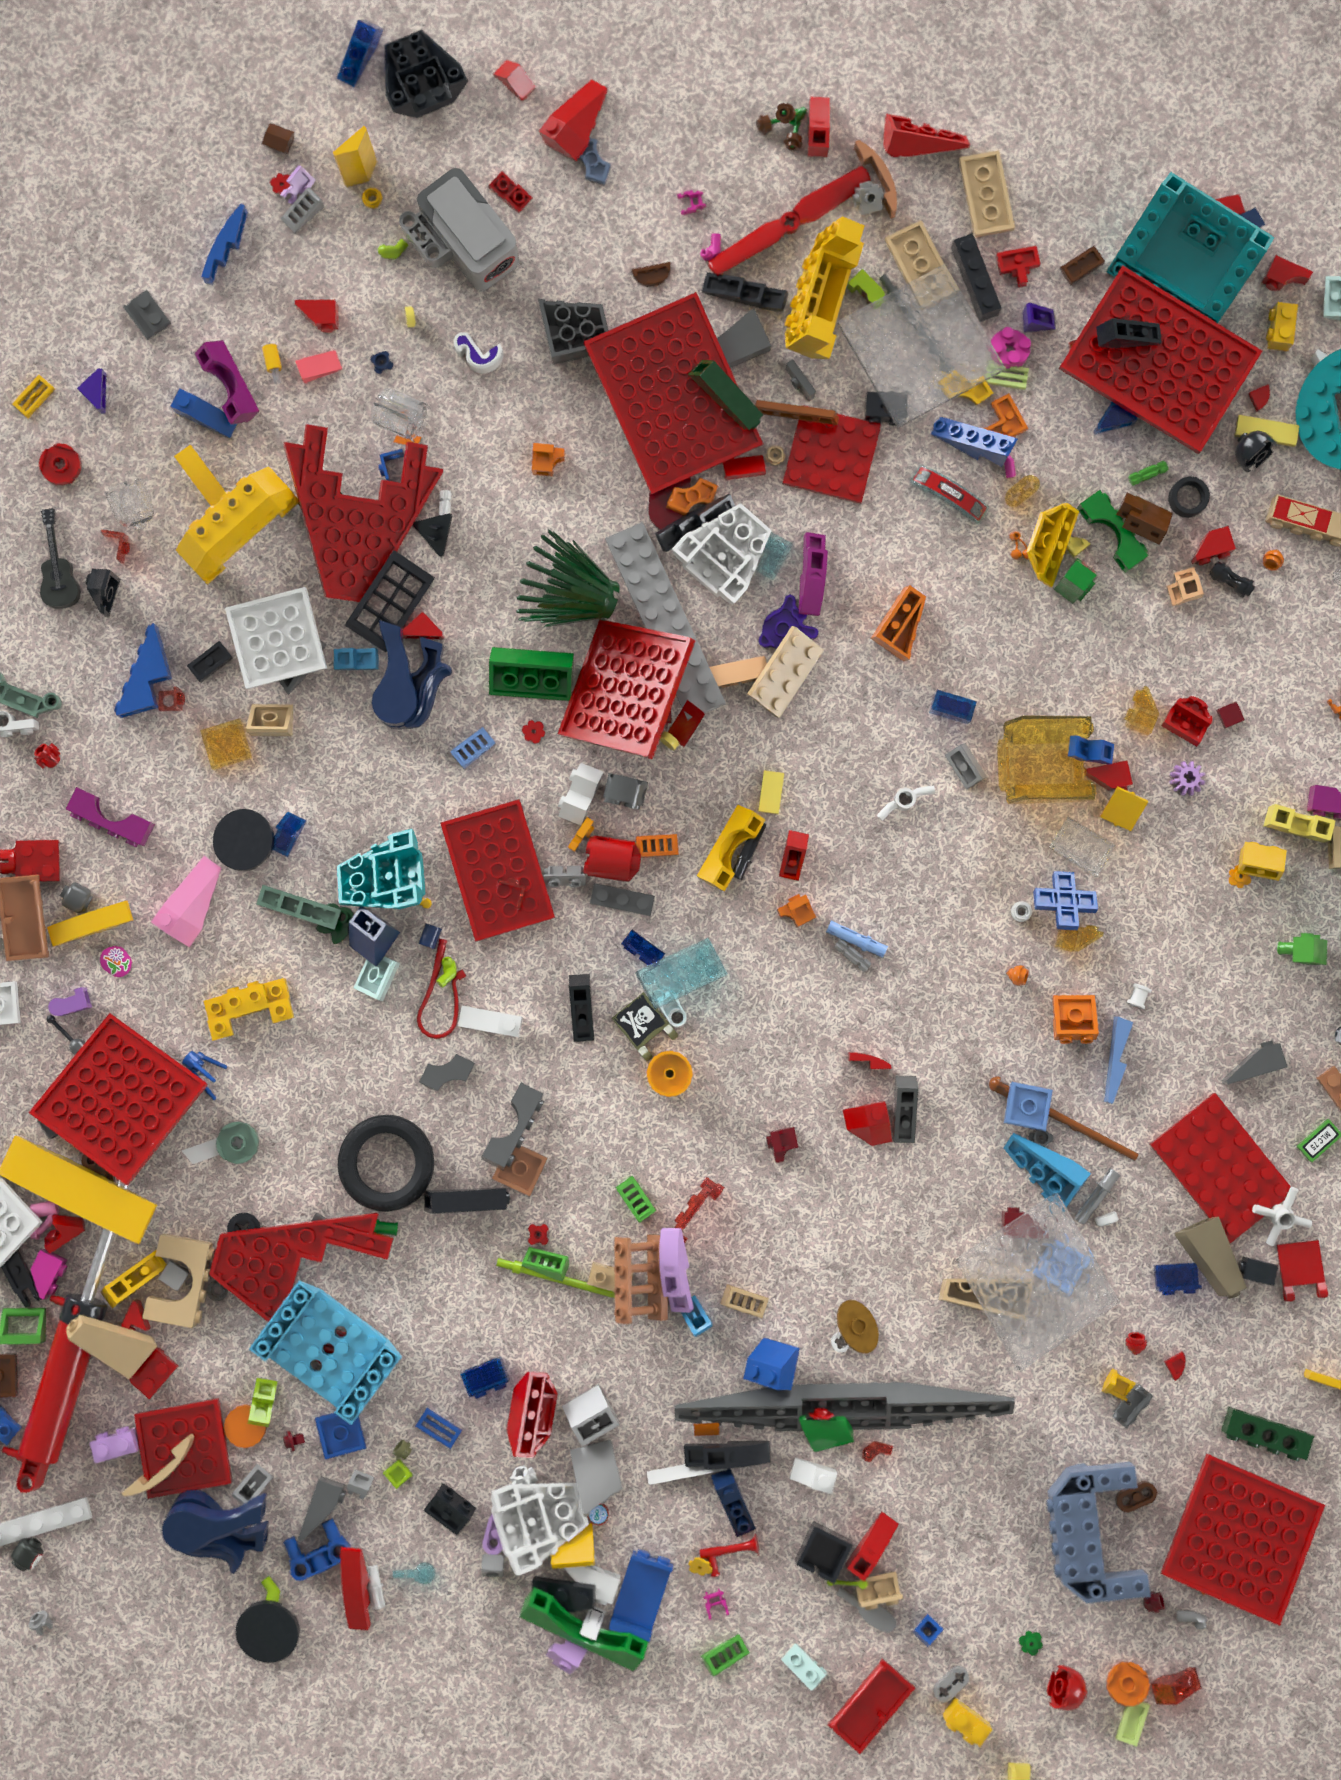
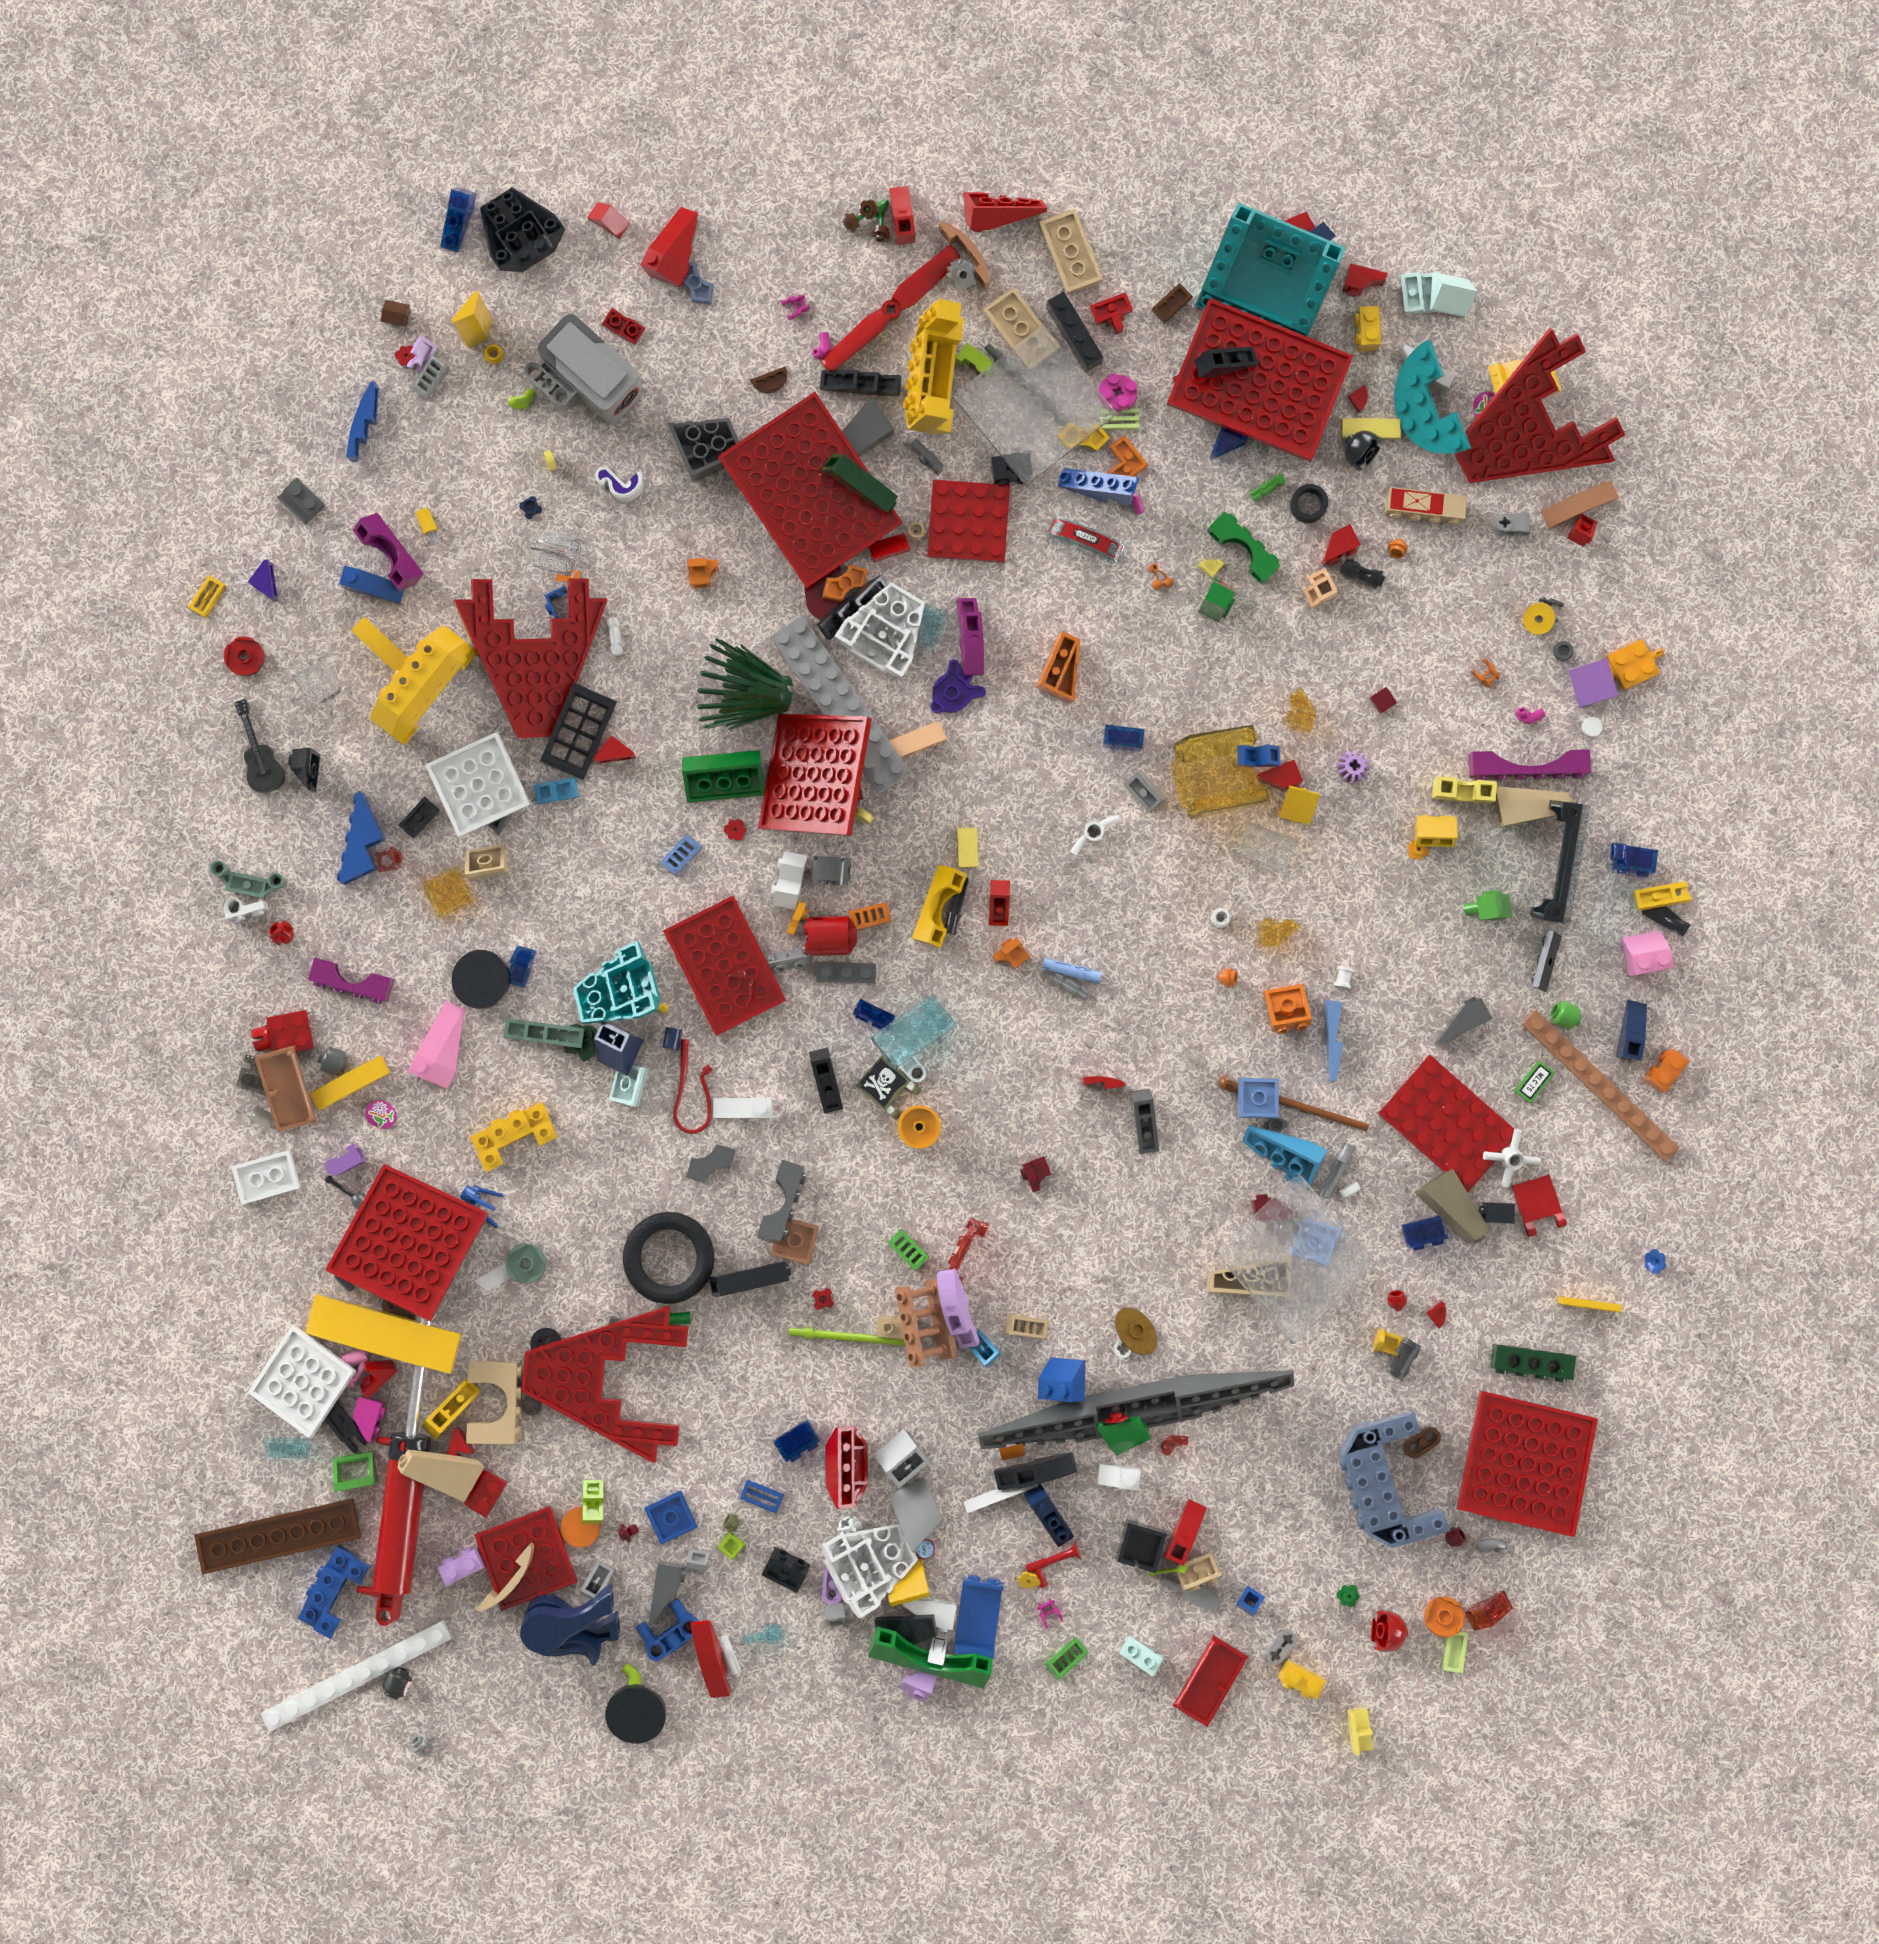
camera: 15 degrees left, 0 degrees up
(124, 545) = (318, 722): clear red bracket -> none
(174, 1275) = (488, 1398): light grey slope -> none
(298, 1336) = (615, 1434): medium azure slope -> none
(318, 366) = (471, 521): coral slope -> none
(320, 313) = (464, 471): red slope -> none
(405, 697) = (606, 818): dark blue animal -> none
(435, 531) = (609, 658): black piece -> none
(449, 970) = (696, 1069): lime arm -> none
(556, 1259) = (842, 1331): bright green slope -> none
(682, 728) = (874, 802): red sticker -> none
(785, 672) = (961, 732): tan plate -> none
(797, 412) = (929, 487): dark orange tile -> none
(869, 1123) = (1113, 1140): red slope -> none
(1025, 494) = (1155, 527): clear yellow beam -> none
(1037, 318) = (1139, 360): dark purple slope -> none
(1050, 541) = (1187, 567): yellow wedge -> none
(1065, 900) = (1259, 900): plate -> none
(1144, 518) = (1271, 530): reddish brown piece -> none
(1188, 719) = (1345, 711): red slope -> none

